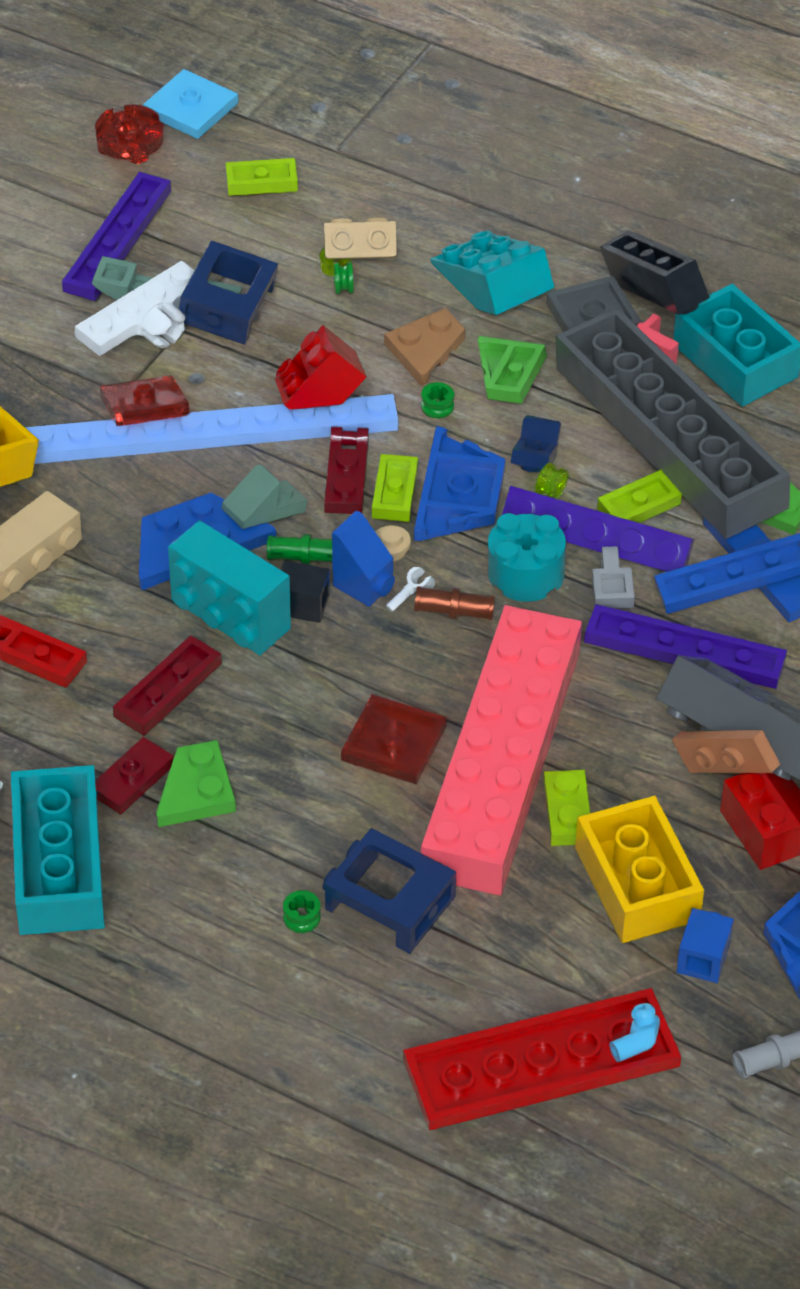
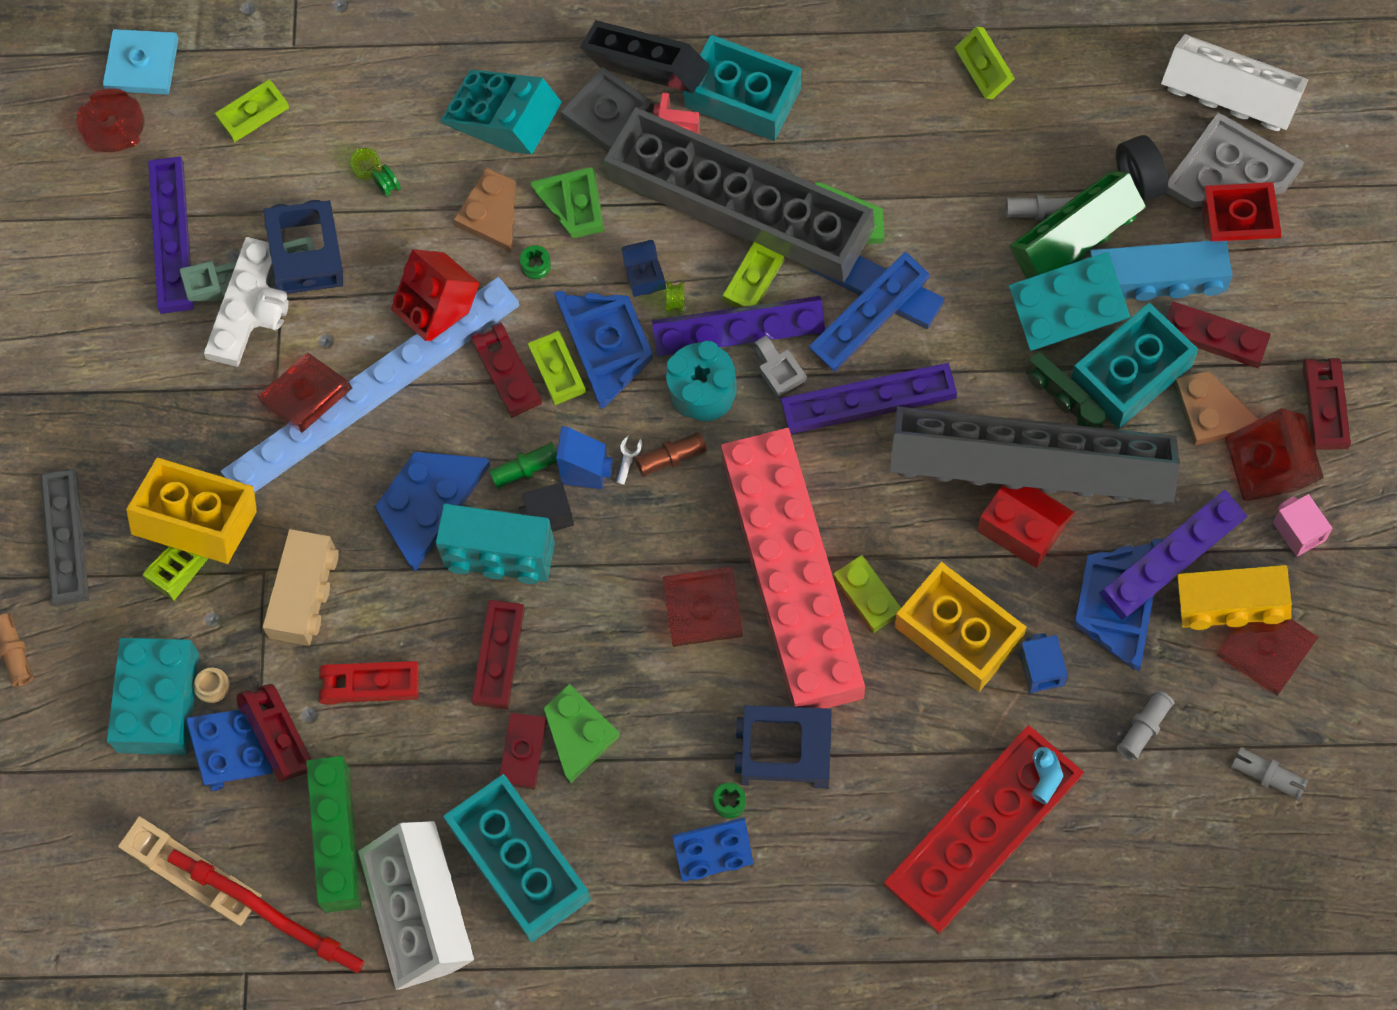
camera: 25 degrees left, 20 degrees up
(251, 932) = (713, 849): none -> blue hinge
(263, 499) = (463, 440): sand green slope -> none
(360, 239) = (378, 137): tan bracket -> none
(395, 540) = (585, 419): tan plate -> none
(726, 751) = (968, 491): nougat plate -> none

